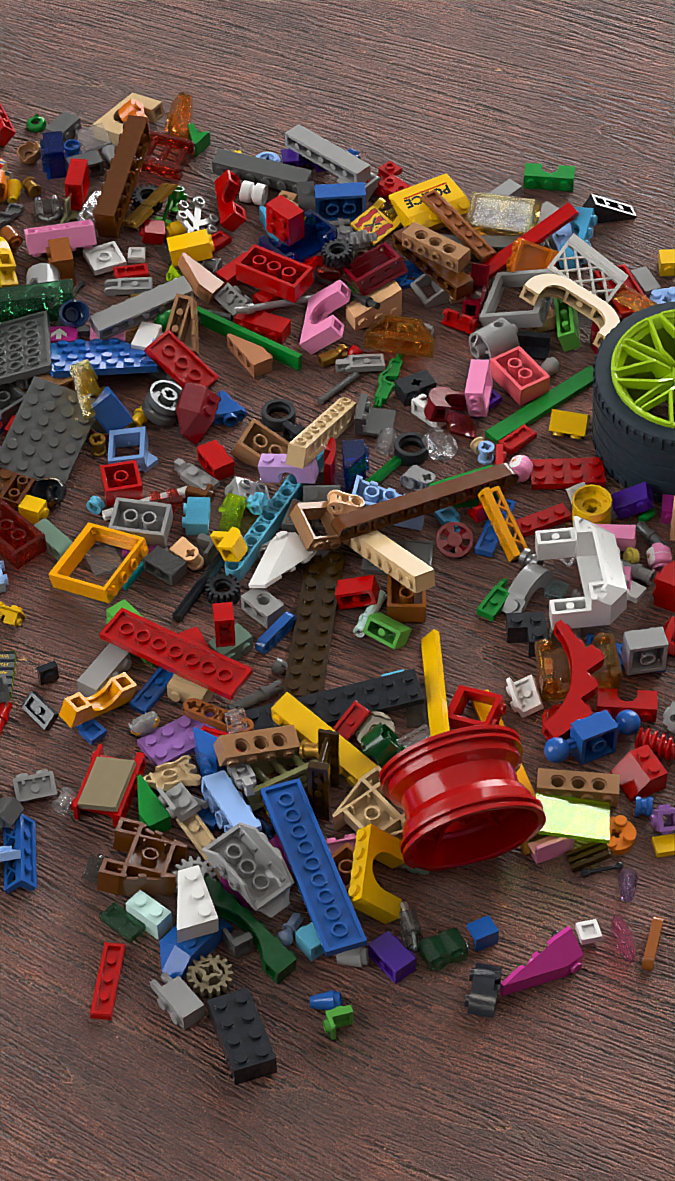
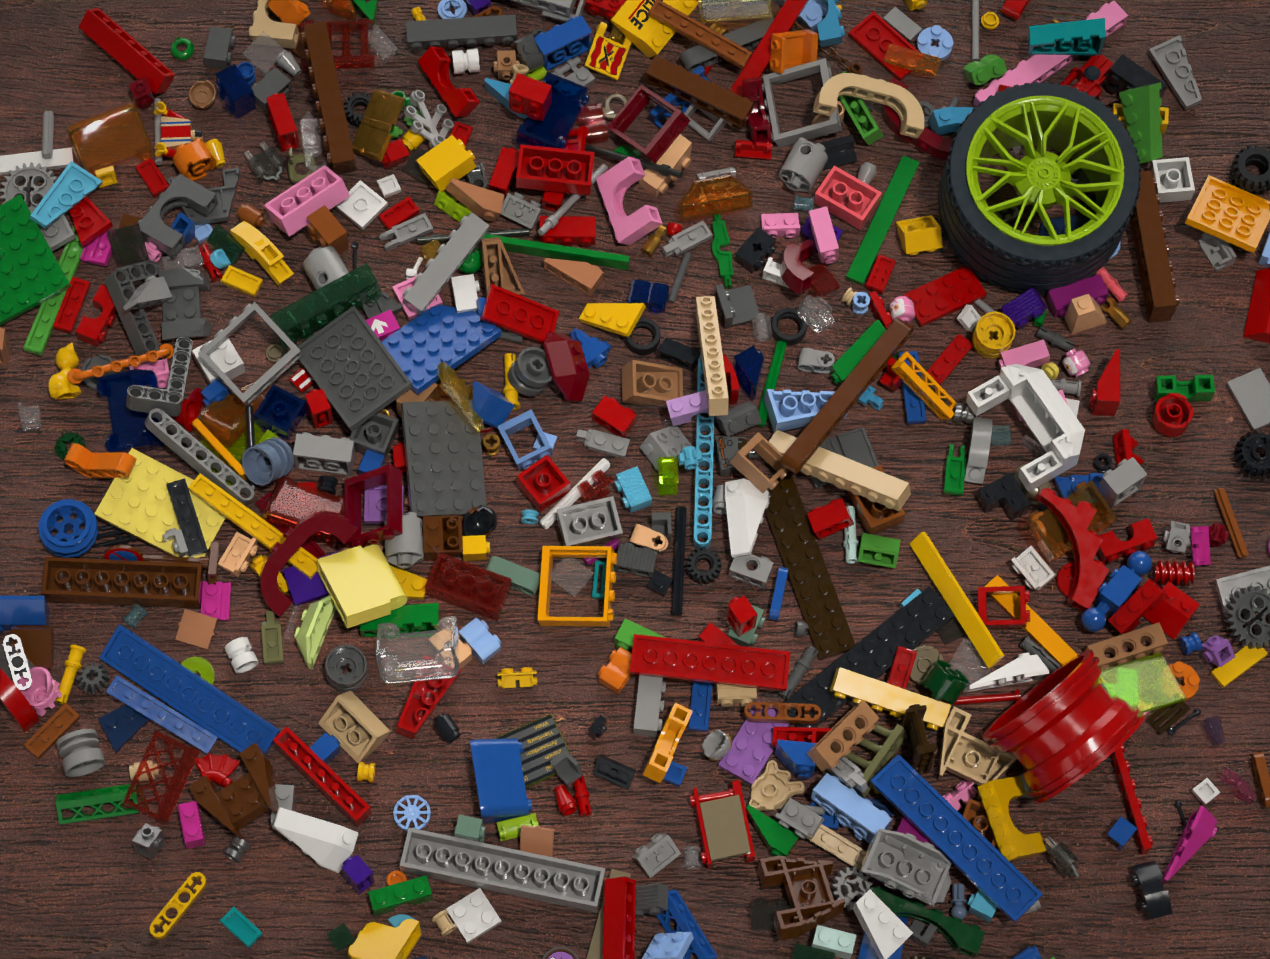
camera: 30 degrees left, 20 degrees up
(30, 185) = (232, 139): pearl gold bush -> none
(74, 313) = (387, 300): dark blue hair -> none
(89, 640) = (617, 671): none -> orange brick
(176, 591) = (659, 583): none -> black plate
(194, 165) = (381, 44): none -> clear tile
(197, 492) = (620, 465): reddish brown bracket -> none
(230, 544) = (695, 518): yellow brick -> none
(236, 720) = (807, 714): clear tile -> none
(261, 392) = (613, 317): none -> yellow wing
(302, 389) = (651, 294): none -> clear blue brick
(308, 750) = (890, 716): pearl gold bush -> none
(337, 254) = (598, 107): black tyre -> none
(343, 504) = (776, 430): light nougat piece -> none
(361, 239) = (606, 85): light grey gear -> none
(392, 957) = (1059, 890): dark purple brick -> none
(436, 247) = (695, 72): medium nougat brick -> none
(443, 949) = (1097, 863): clear green brick -> none
(449, 378) = (781, 224): none -> bright pink bracket
(454, 540) = (885, 419): dark red piece -> none
(509, 913) = (1132, 802): none -> red plate
(593, 258) = (864, 35): white fence -> none
(615, 744) = (1145, 598): none -> red arch

